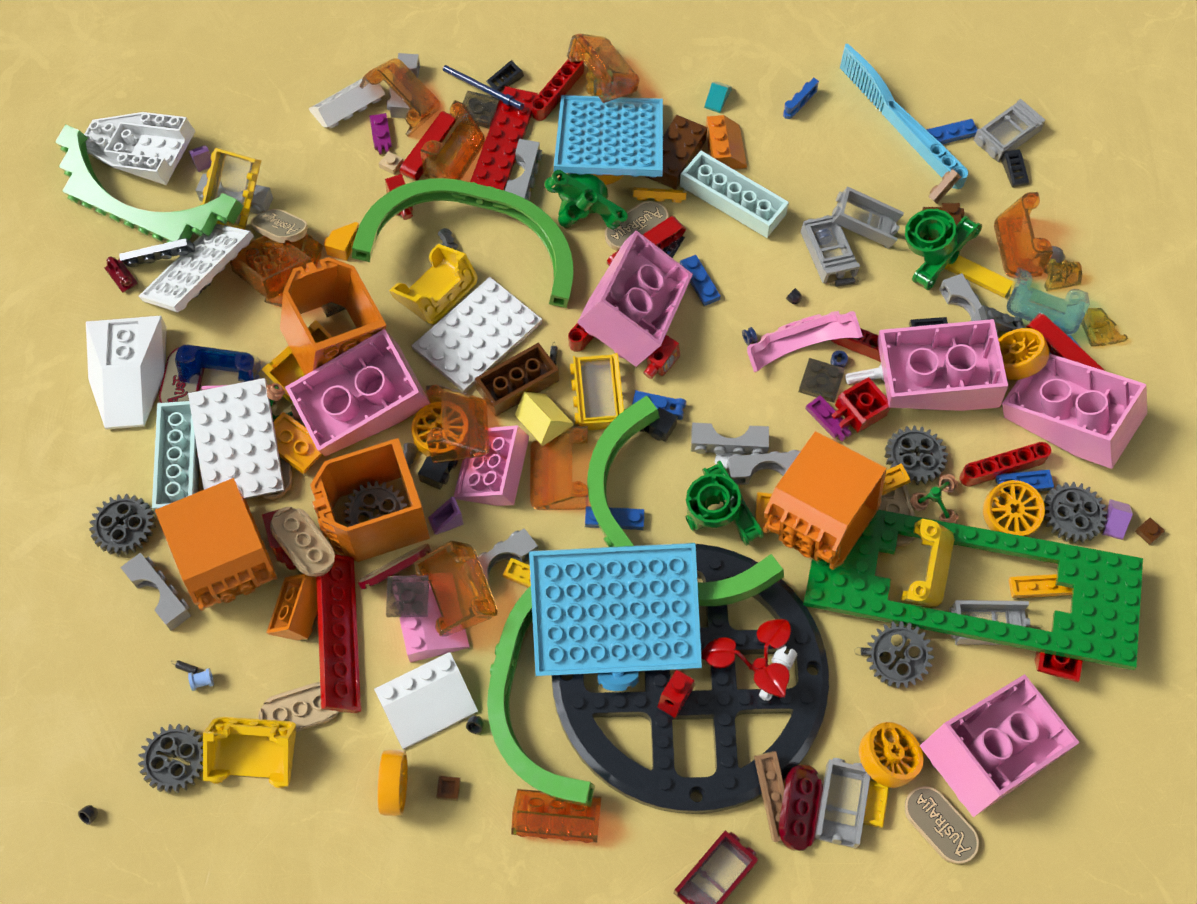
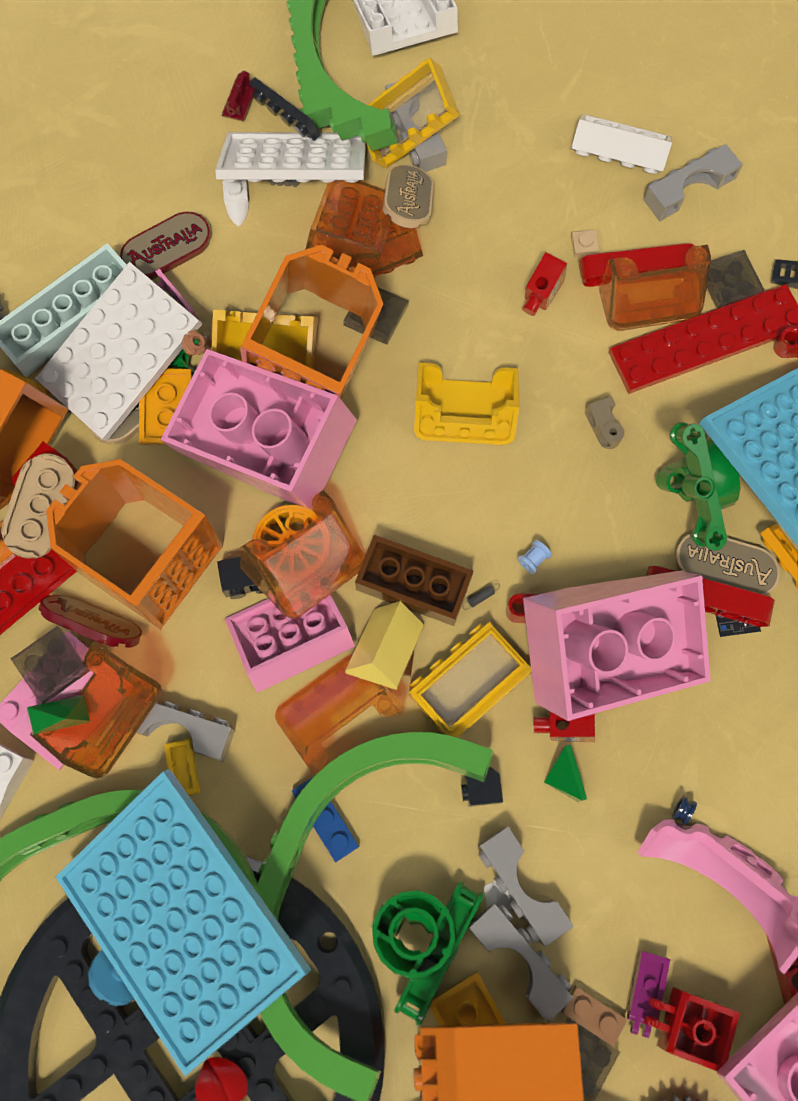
camera: 55 degrees right, 10 degrees up
(126, 367) = (136, 185): white wedge -> none
(188, 322) = (236, 200): none -> white plate
(192, 359) = (214, 287): clear blue windscreen -> none
(201, 157) = (439, 55): medium lavender slope -> none
(341, 241) = (445, 270): light orange slope -> none
(380, 132) = (613, 205): magenta hinge -> none
(380, 495) = (122, 562): dark grey gear -> none
(408, 88) = (684, 188): clear orange windscreen -> none
(410, 453) = (236, 533): dark grey piece -> none
(440, 612) = (58, 714): none -> green slope
(446, 517) = (192, 630): medium lavender slope -> none
(448, 240) = (535, 374): dark grey piece -> none
(476, 195) = (609, 359): bright green arch -> none
(476, 334) = (444, 494): white plate -> none
(507, 99) = (768, 299): dark blue bar -> none
(507, 226) = (604, 424): none -> dark tan leg
(527, 157) = (660, 400): light grey arch -> none
(554, 313) = (534, 556): none -> light blue bush
(663, 402) = (508, 764): blue plate -> none
(677, 692) = (130, 1069): red torso -> none
(687, 379) = (565, 775): none -> green slope
(700, 280) = (715, 694): blue plate -> none
(794, 296) = (785, 826): black hinge -> none
(821, 379) = (696, 944): clear smoke plate -> none
(841, 354) = (751, 952): dark blue bush -> none
(857, 377) = (746, 999): white piece -> none

